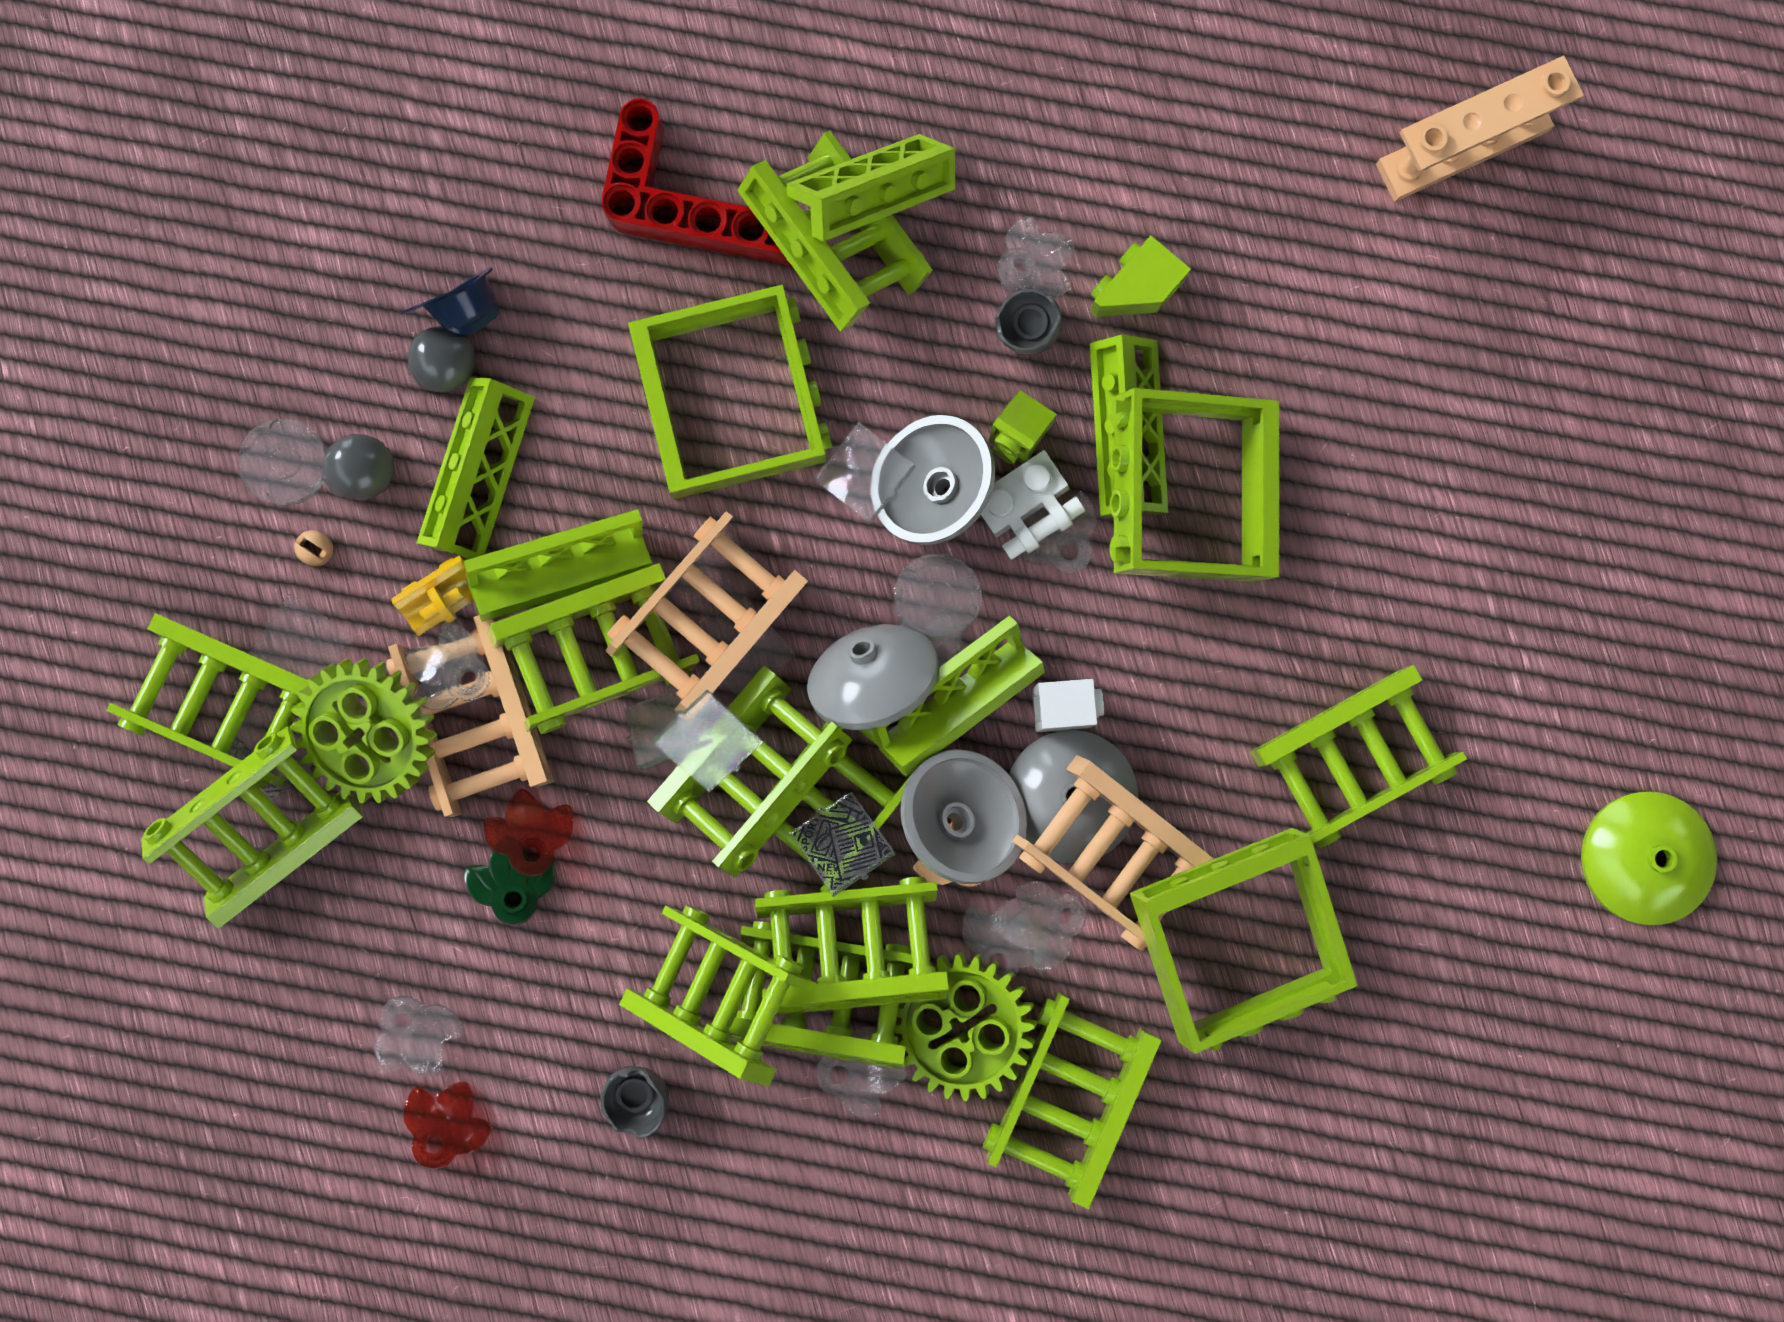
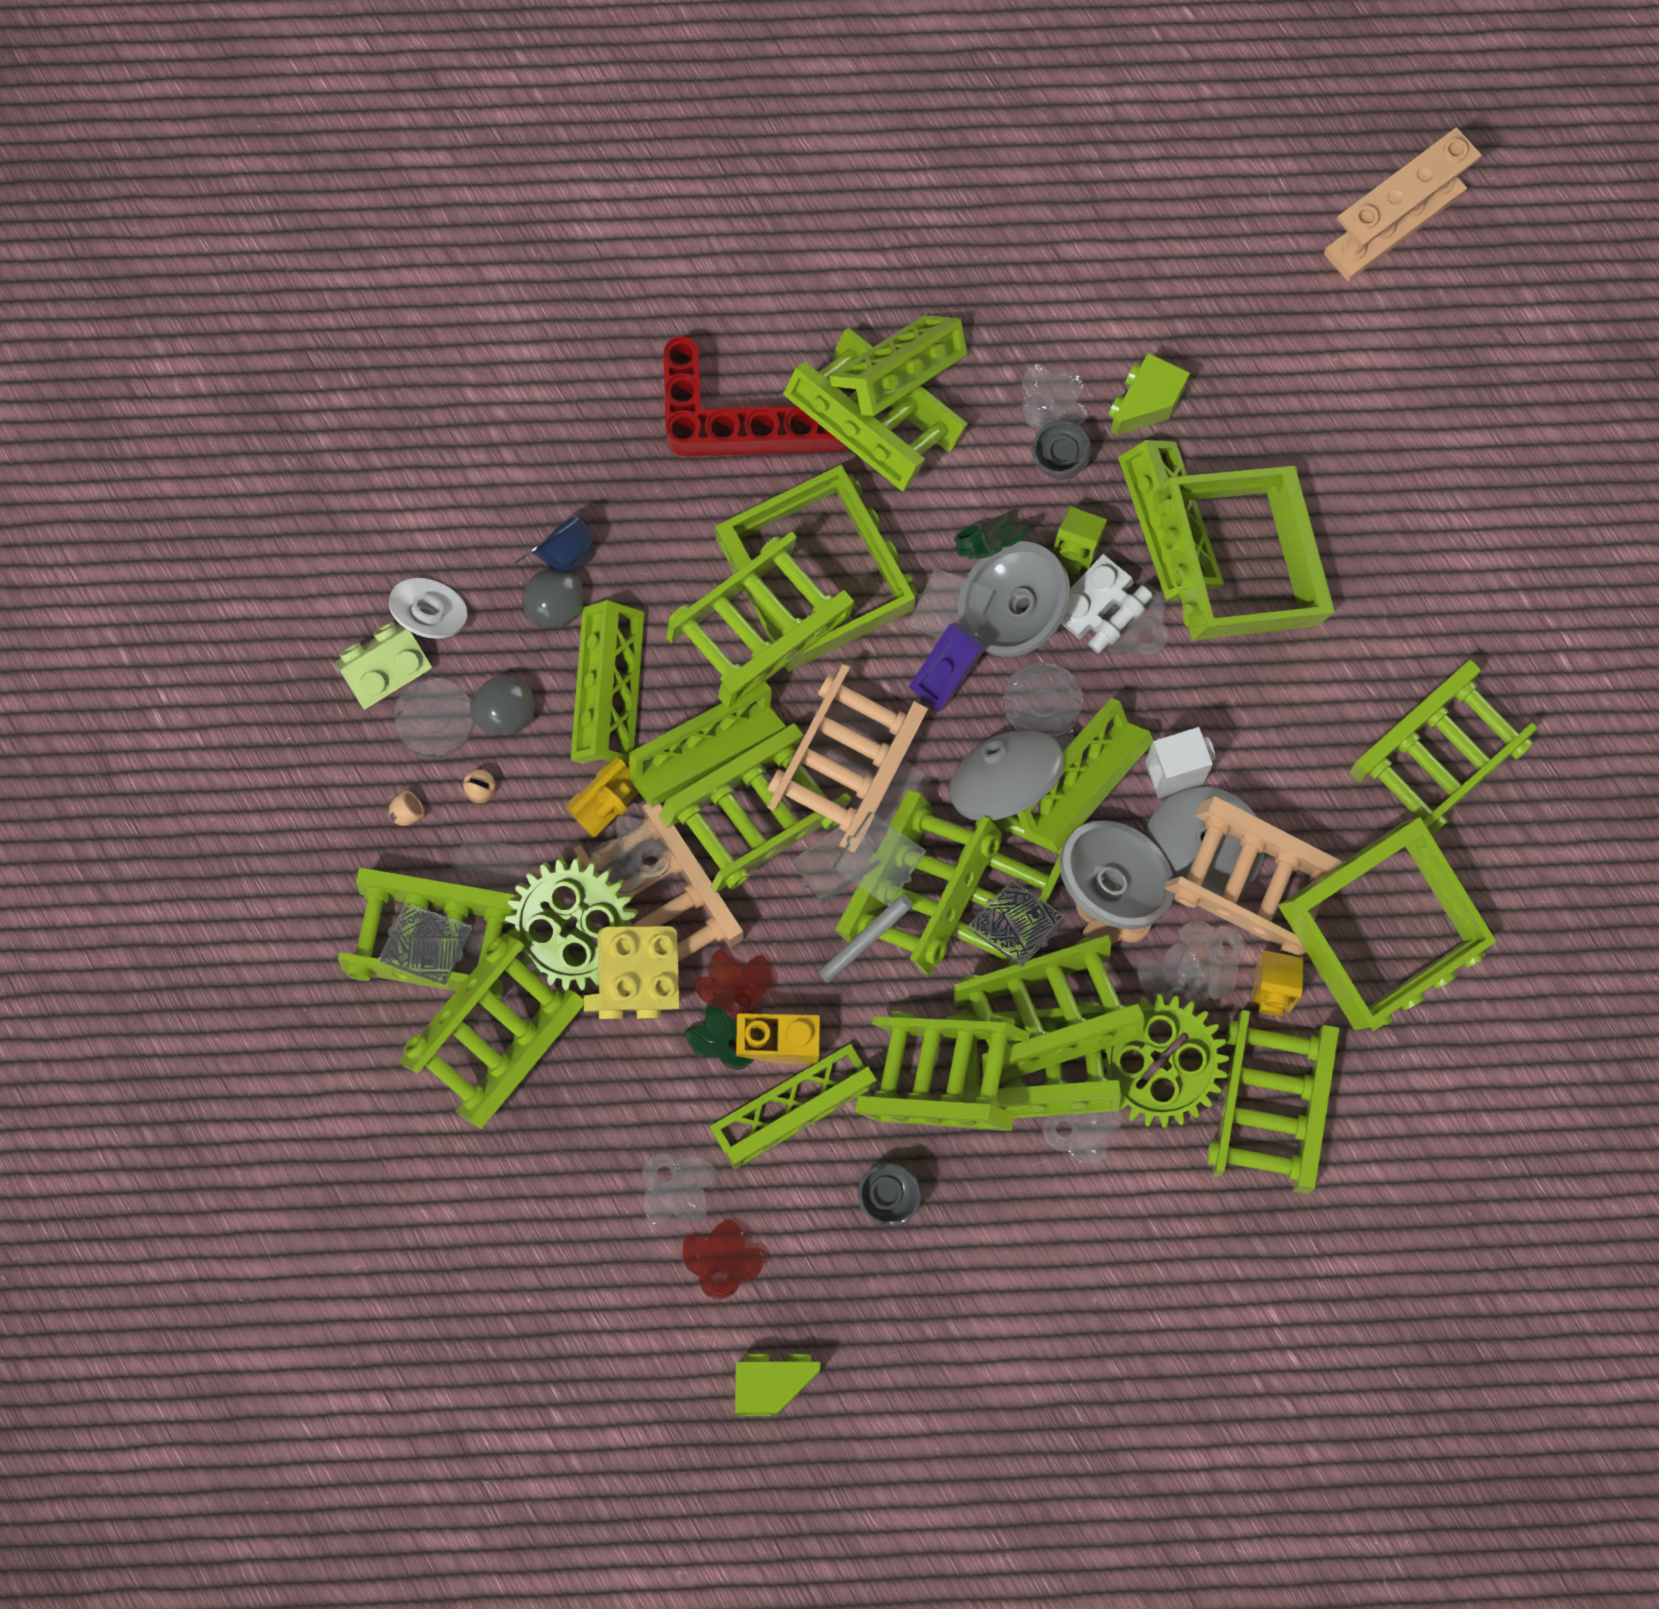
camera: 15 degrees left, 10 degrees down
(203, 715) = (425, 943): none -> clear piece
(238, 553) = (406, 808): none -> light nougat hinge
(239, 390) = (382, 664): none -> yellowish green bracket
(303, 327) = (427, 608): none -> white dish
(417, 801) = (636, 972): none -> light yellow bracket
(458, 1273) = (770, 1387): none -> lime slope
(557, 904) = (778, 1038): none -> yellow slope
(564, 994) = (801, 1117): none -> lime fence
(642, 486) = (767, 657): none -> lime fence
(677, 819) = (865, 938): none -> light grey bar
(842, 537) = (947, 666): none -> dark purple plate
(919, 405) = (989, 539): none -> dark green plate
(1108, 972) = (1277, 983): none -> yellow slope

